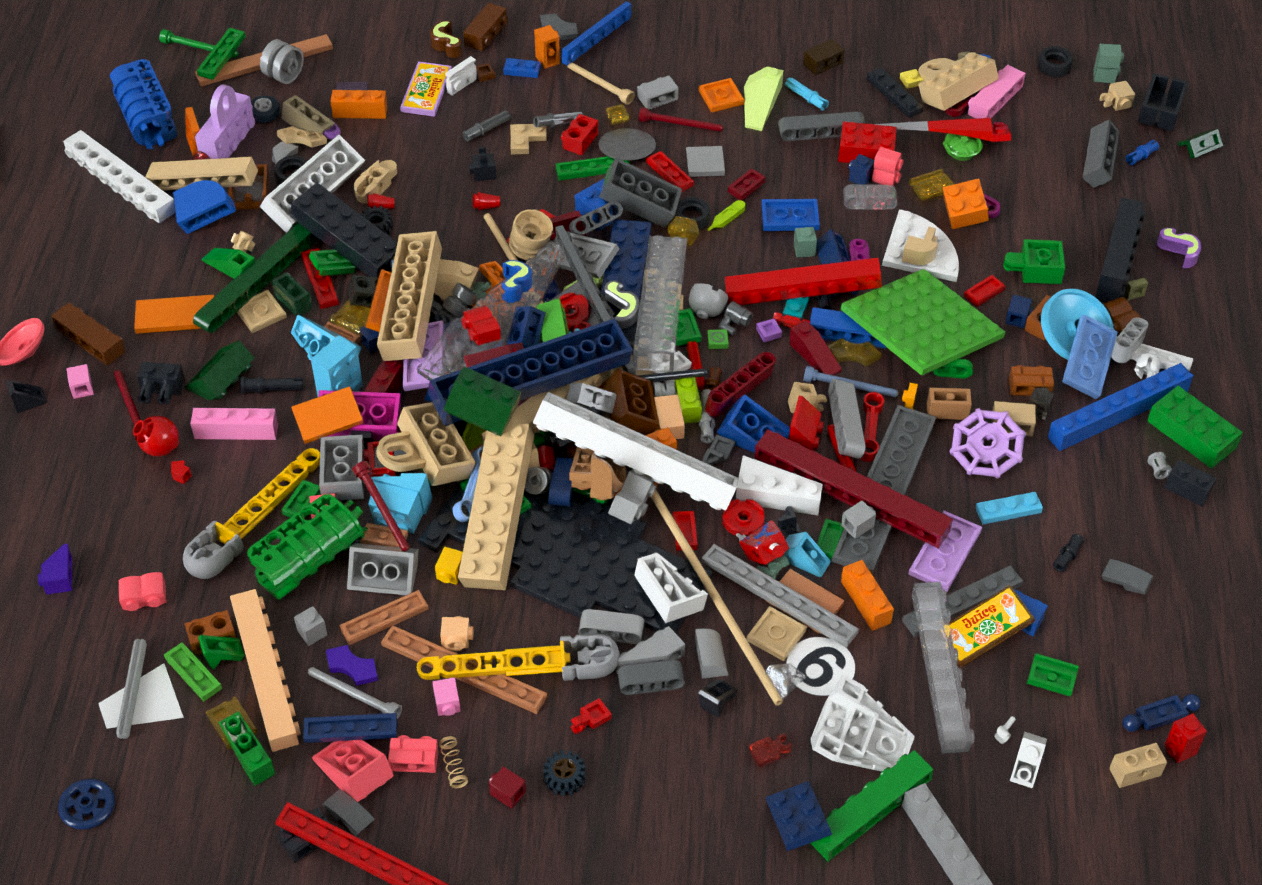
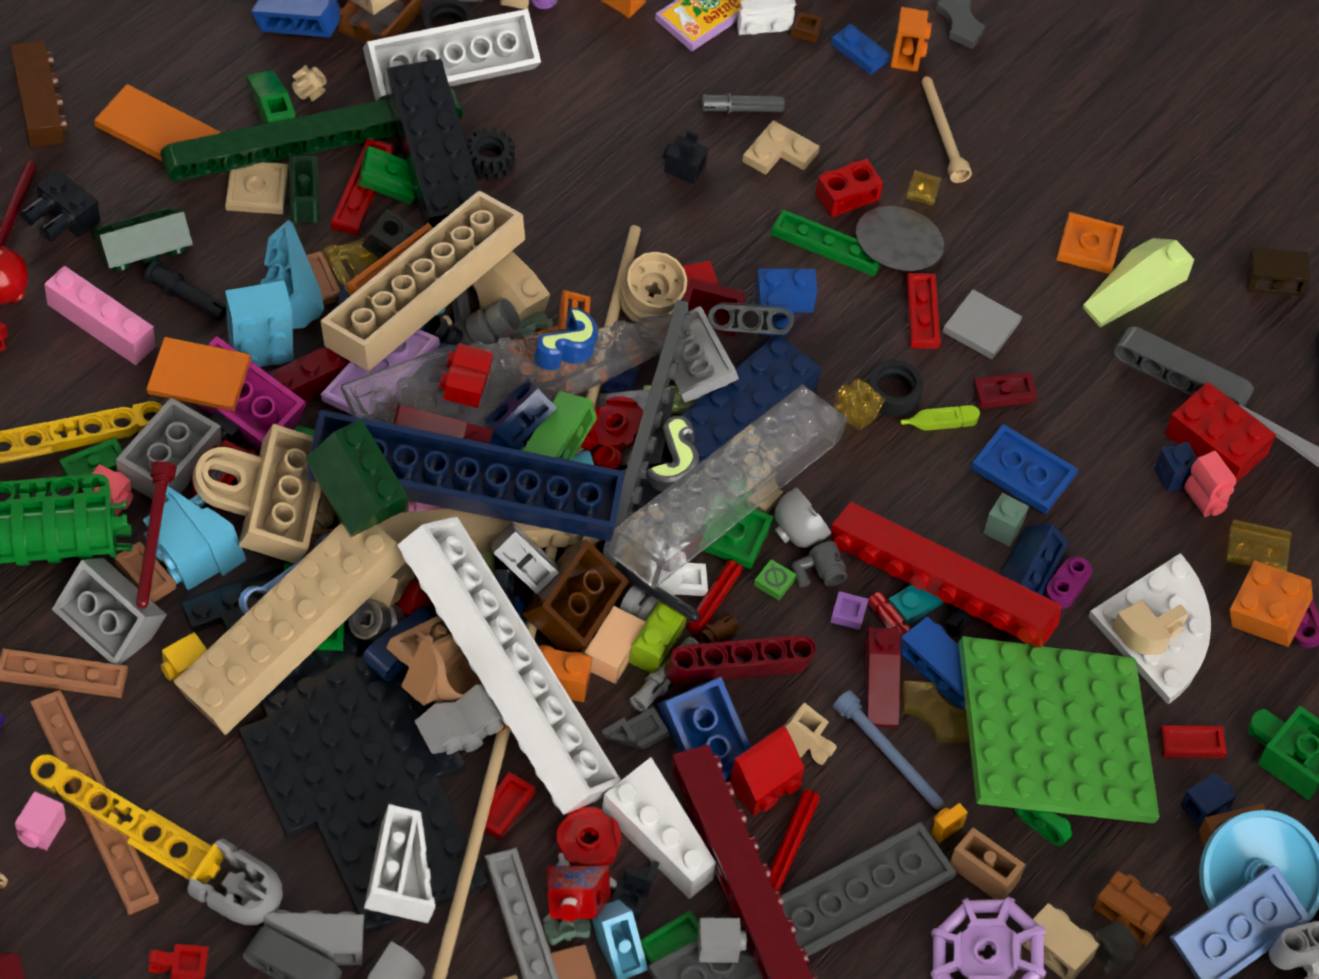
camera: 30 degrees right, 5 degrees up
(374, 180) = (537, 96): tan piece -> none
(380, 200) = (518, 129): red cone -> none
(456, 633) = (119, 749): light nougat brick -> none
(485, 201) = (648, 207): red cone -> none
(554, 119) = (834, 148): dark grey axle -> none
(596, 33) = (996, 57): blue plate -> none
(617, 626) = (304, 867): light grey beam -> none
(640, 192) = (841, 318): dark grey brick -> none
(646, 115) = (960, 211): dark red piece -> none
(657, 92) = (1003, 189): light grey brick -> none
(811, 96) = (1209, 320): medium azure axle -> none
(846, 418) = (833, 796): light grey beam -> none
(870, 197) = (1155, 511): clear beam -> none
(871, 424) = (863, 825): red piece -> none

